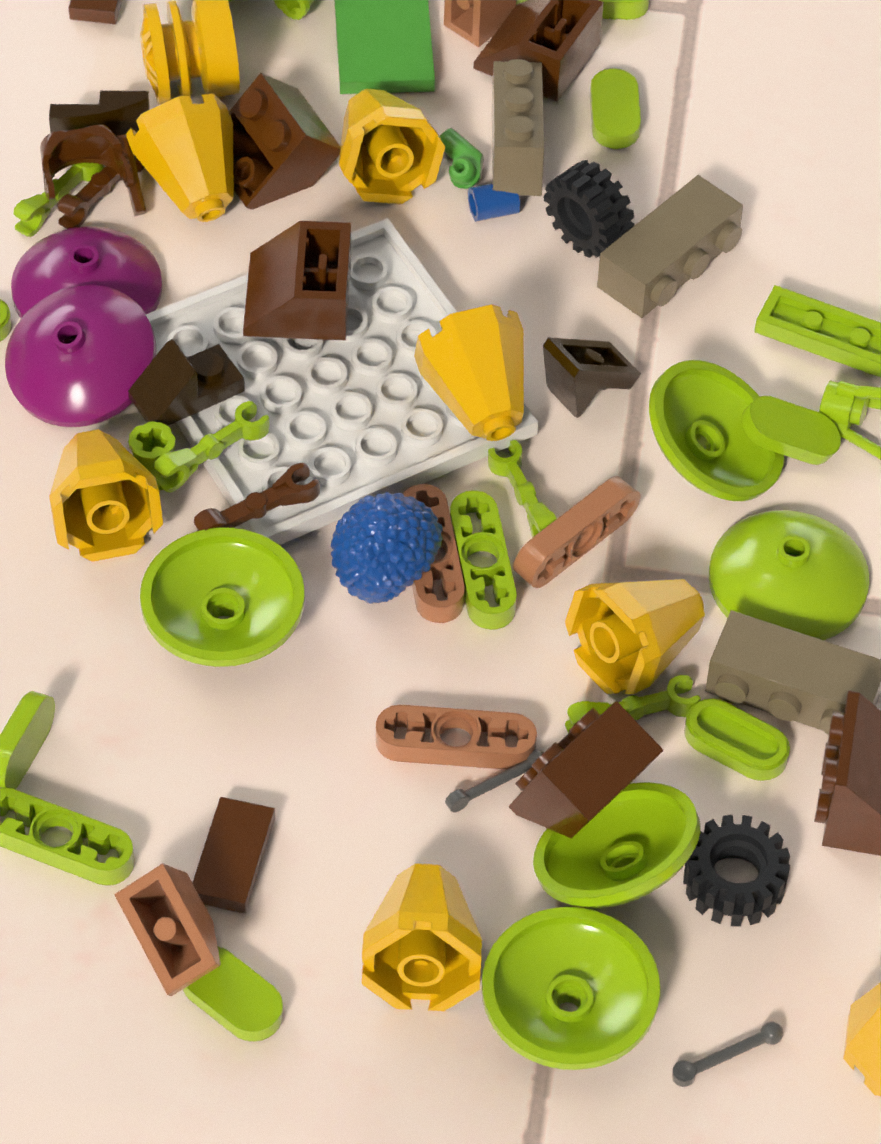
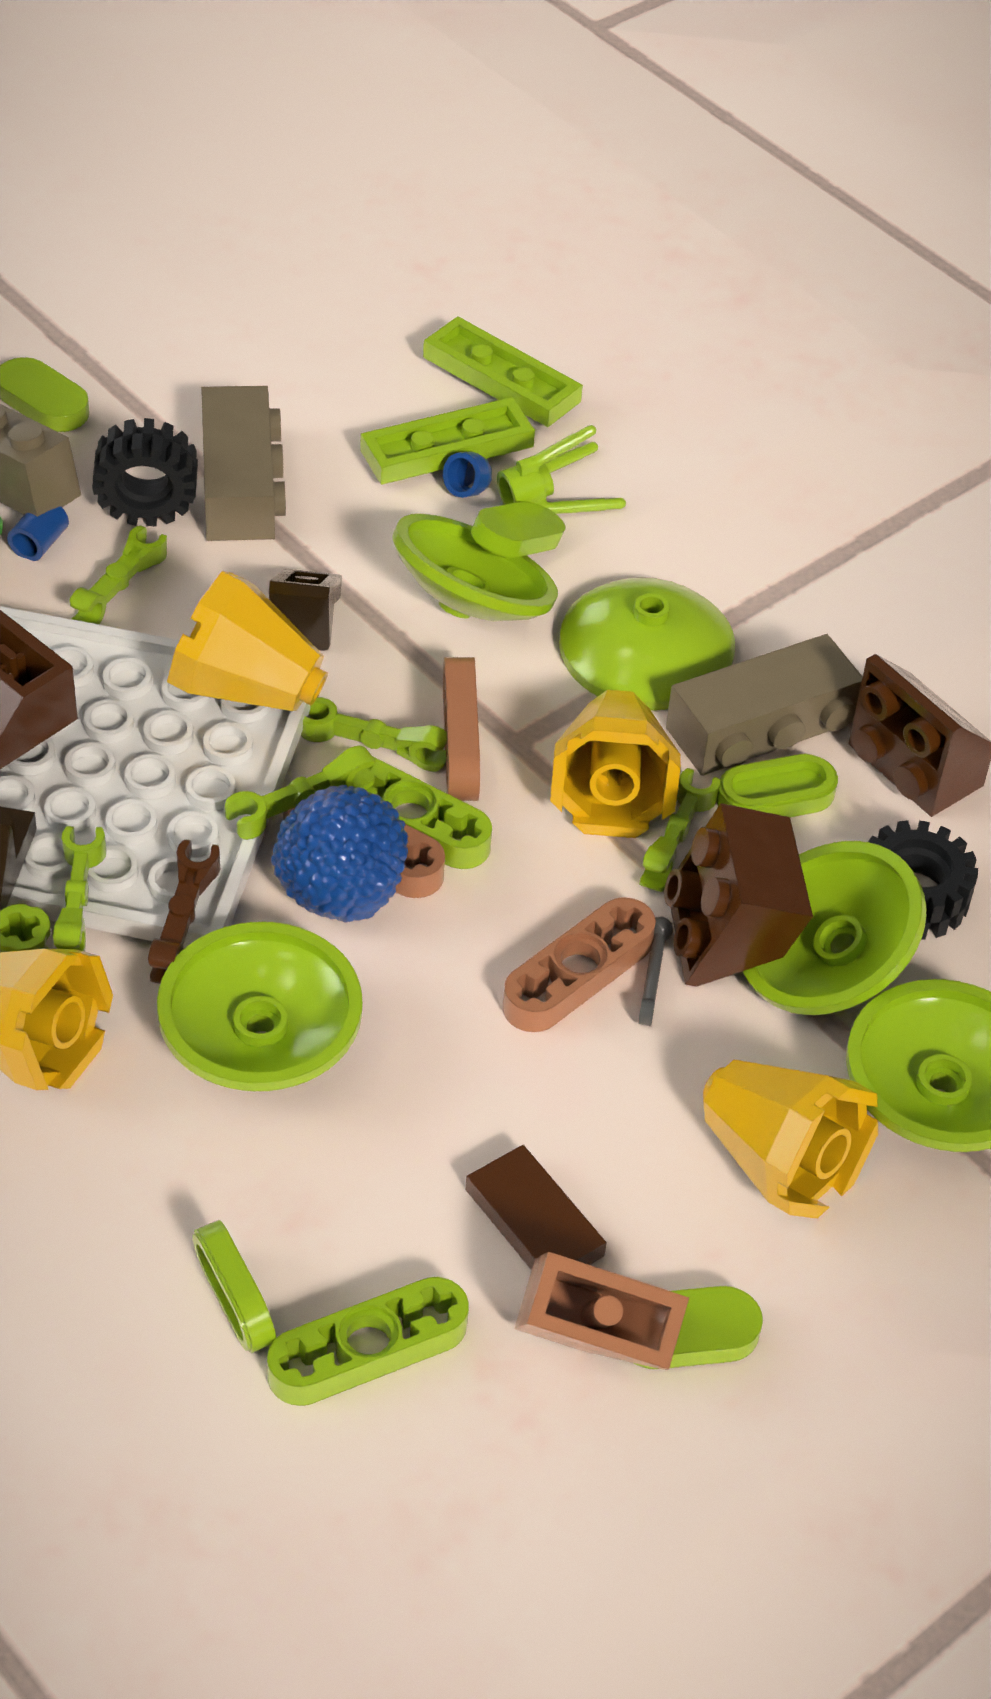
camera: 50 degrees left, 5 degrees down
(454, 500) = (347, 769): none -> lime piece
(534, 263) = (135, 558): none -> lime piece
(817, 367) = (462, 470): none -> blue hinge

